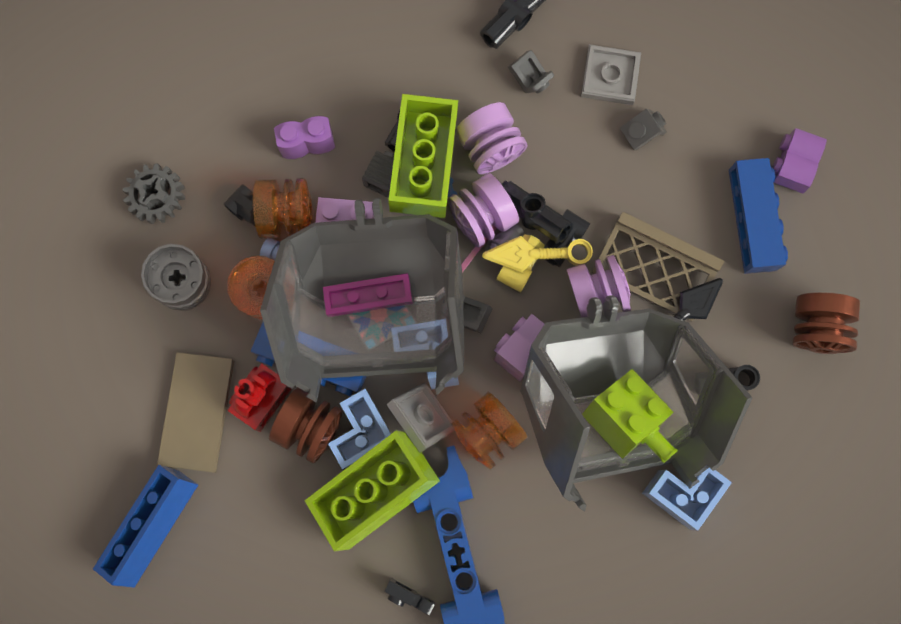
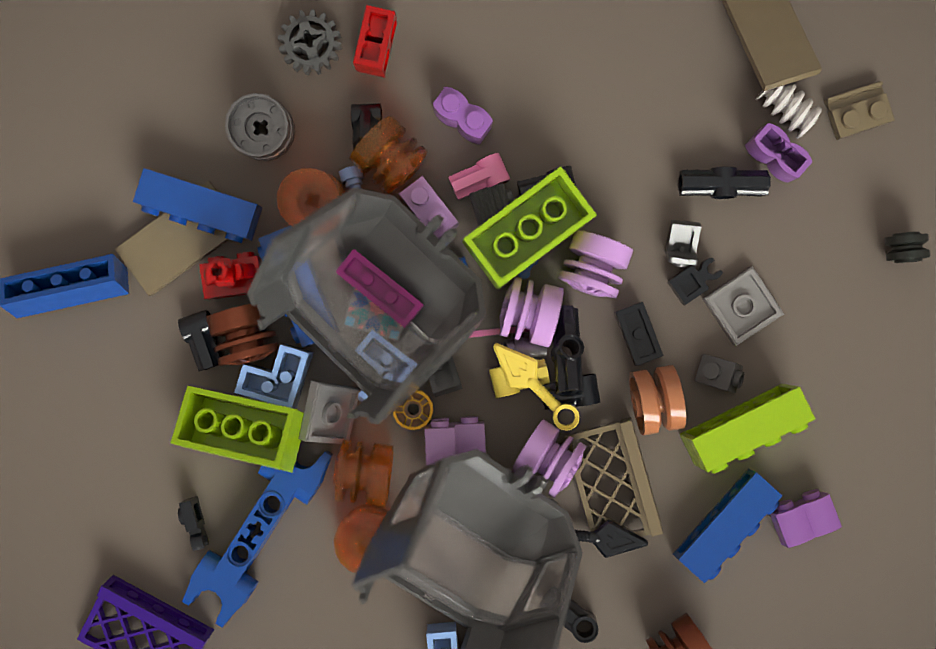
camera: 50 degrees right, 10 degrees up
(185, 372) = (197, 204): none -> blue brick
(197, 148) = (375, 41): none -> red brick
(277, 461) = (196, 333): none -> black piece
(357, 158) = (485, 174): none -> bright pink piece
(486, 355) = (423, 416): none -> wheel
(521, 479) = (354, 527): none -> clear orange wheel
(563, 91) = (691, 283): none -> black plate
(566, 157) = (638, 334): none -> black plate
(624, 180) = (657, 399): none -> nougat wheel
(629, 416) = (469, 572): lime brick -> none
(699, 139) = (747, 427): none -> lime brick

